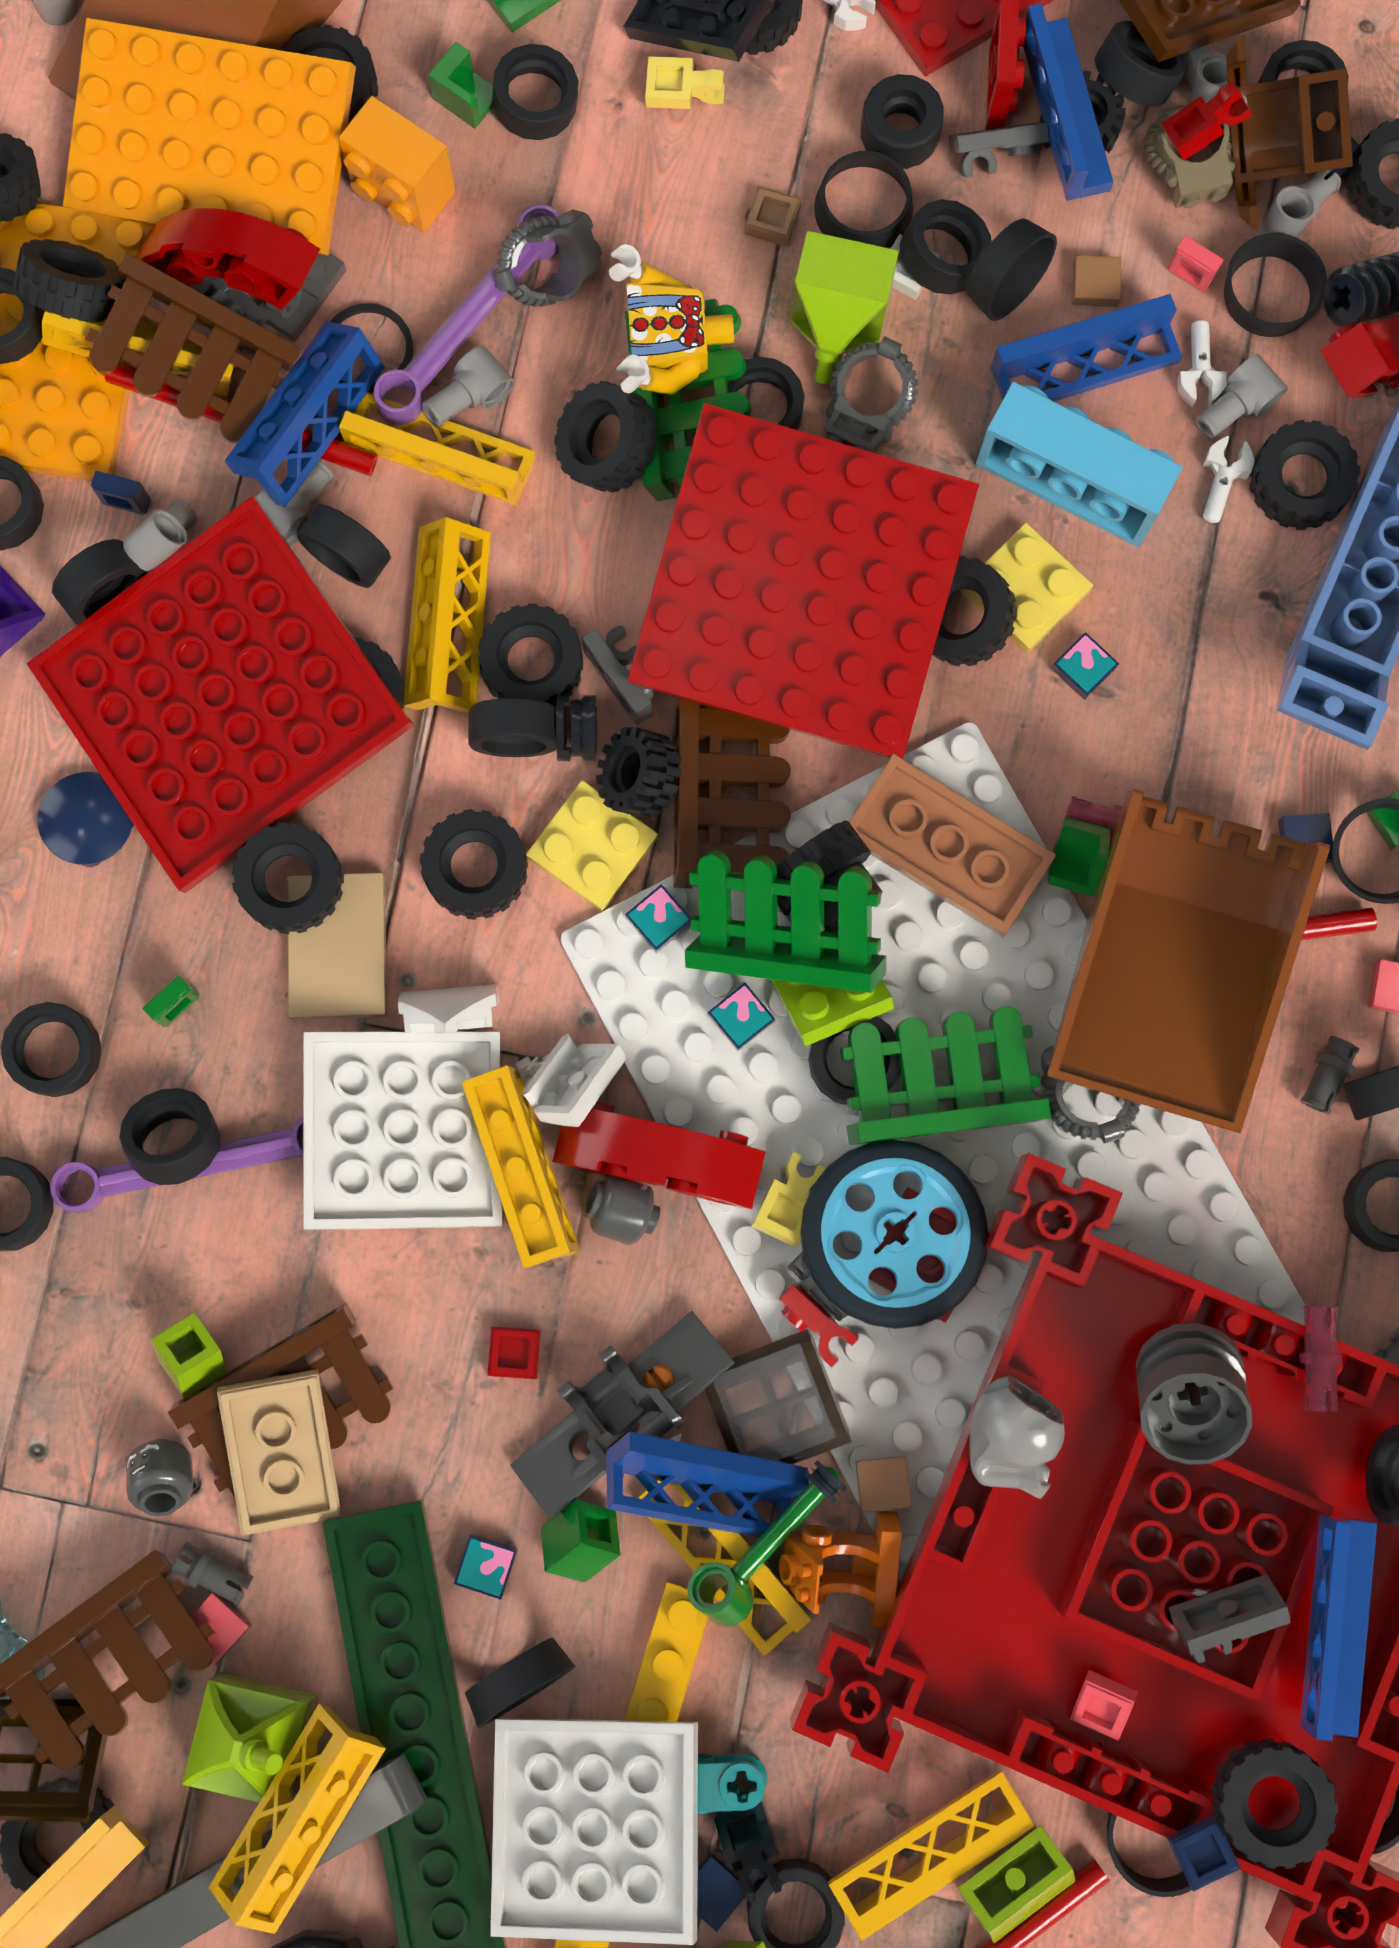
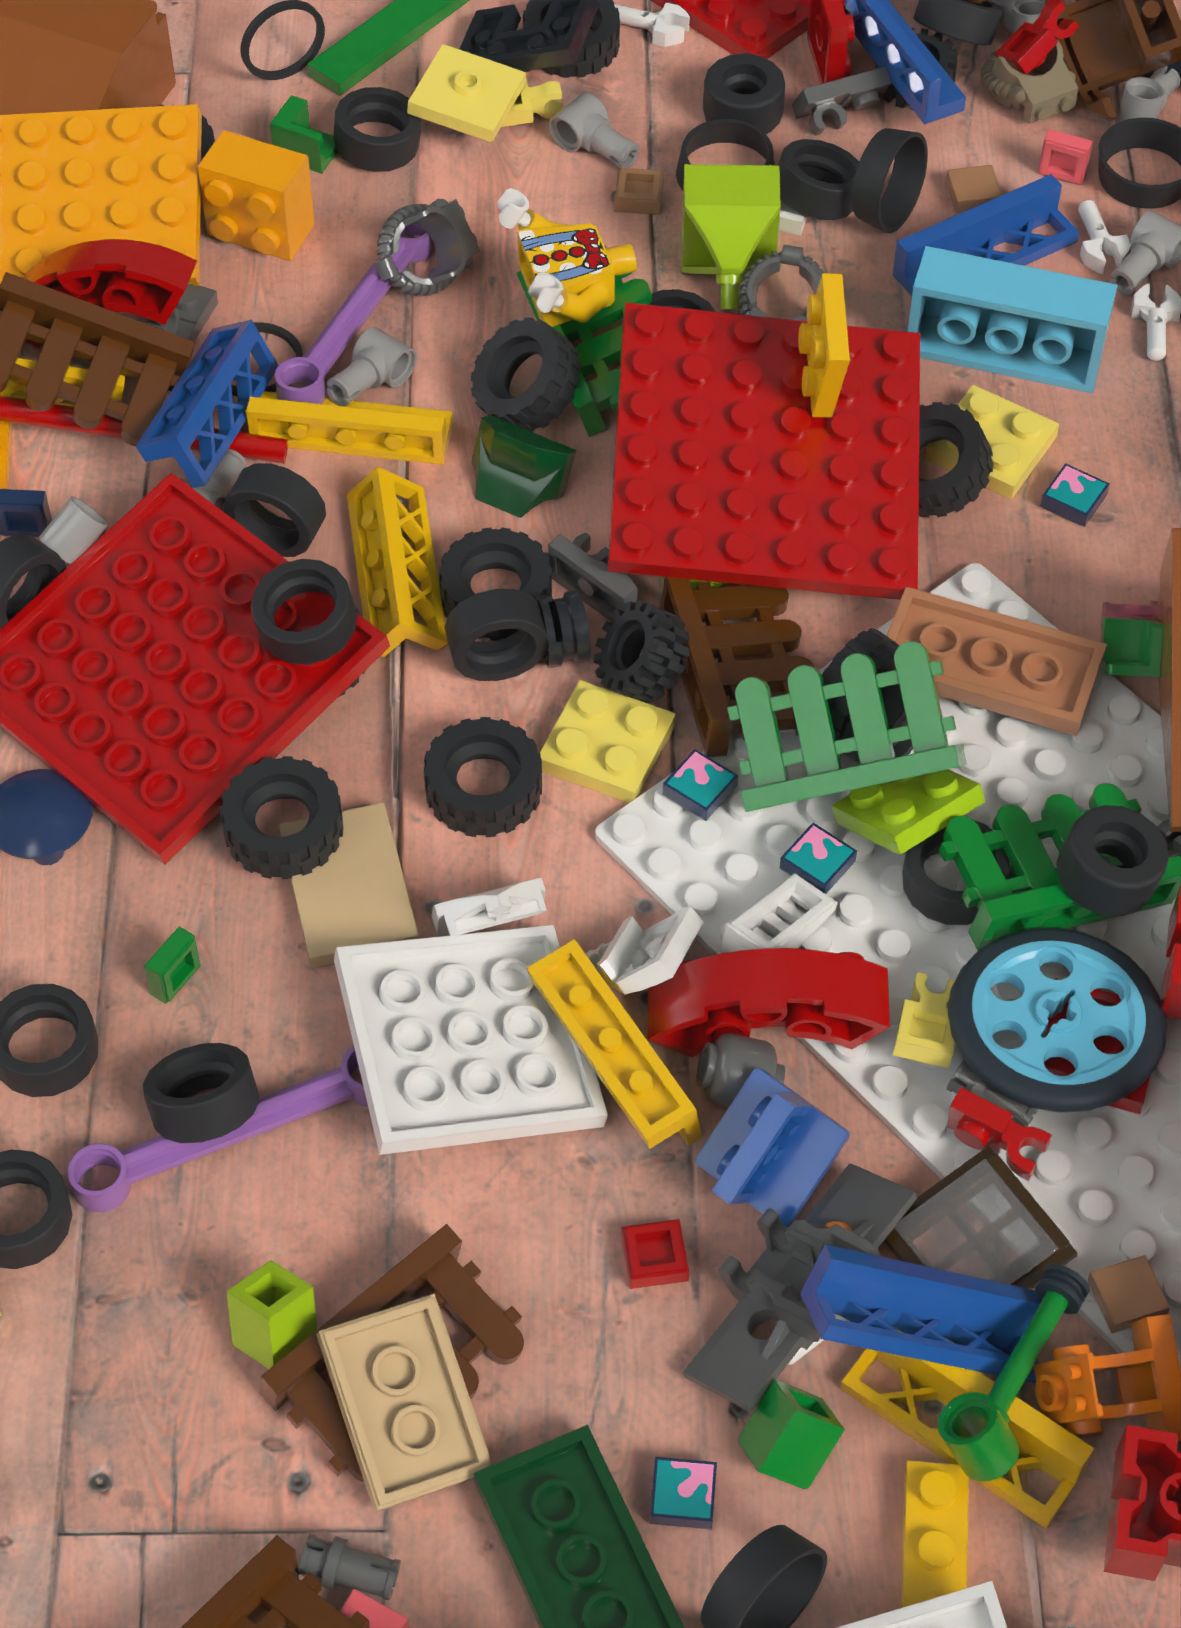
camera: 10 degrees left, 25 degrees down
(159, 1477) = (263, 1459): dark grey head -> none
(305, 672) = (297, 578): none -> black tyre
(579, 531) = (518, 466): none -> dark green slope
(625, 1291) = (771, 1148): none -> blue bracket
(627, 72) = (466, 93): none -> light yellow plate
(656, 1098) = (745, 931): none -> white slope
(738, 128) = (587, 126): none -> light grey pin
(875, 492) = (826, 345): none -> yellow plate
(1010, 1101) = (1121, 835): none -> black tyre

